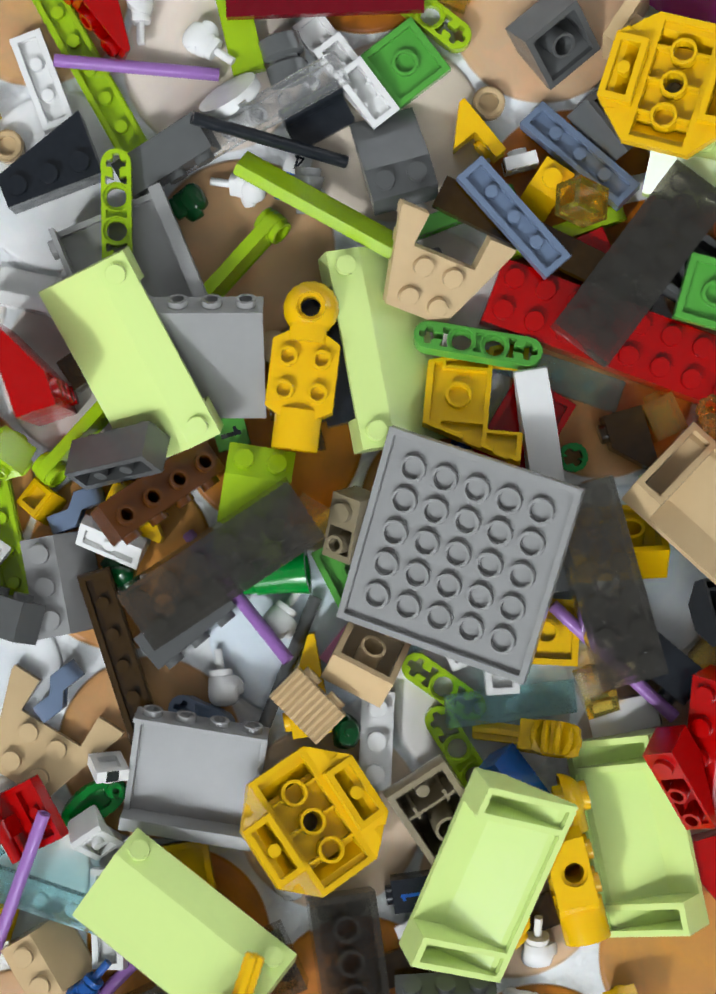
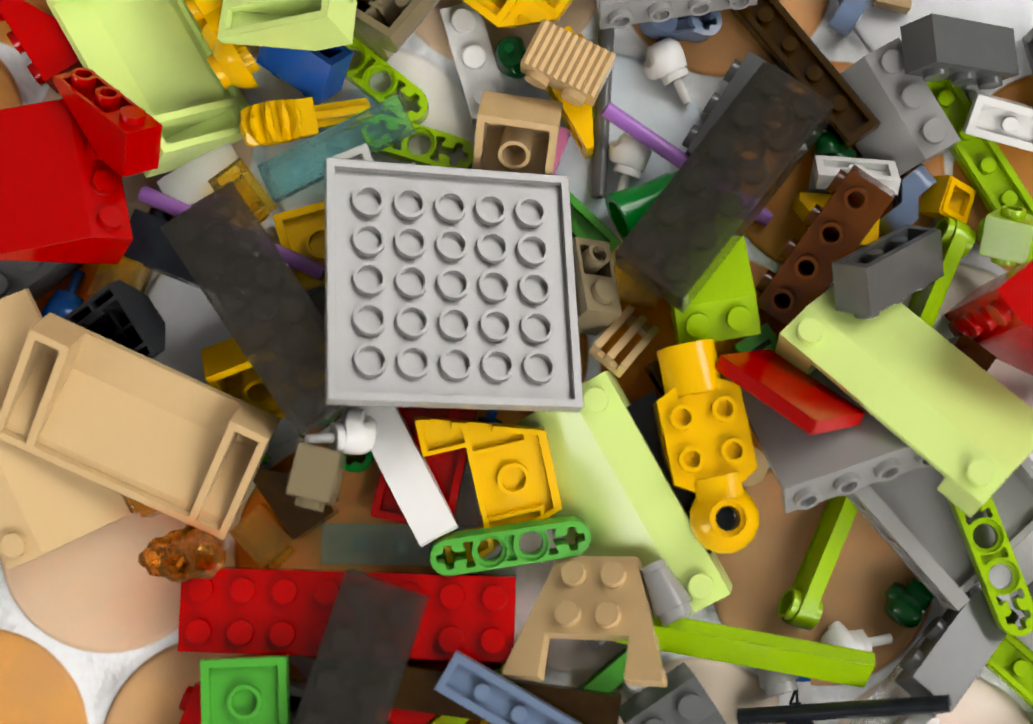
camera: 165 degrees right, 5 degrees down
(229, 386) = (789, 391): none -> red tile
(320, 484) = (636, 326): none -> tan tile
(374, 268) = (666, 593): none -> light grey cone
(574, 465) = (352, 436): none -> white piece
(609, 442) = (316, 477): none -> dark tan brick

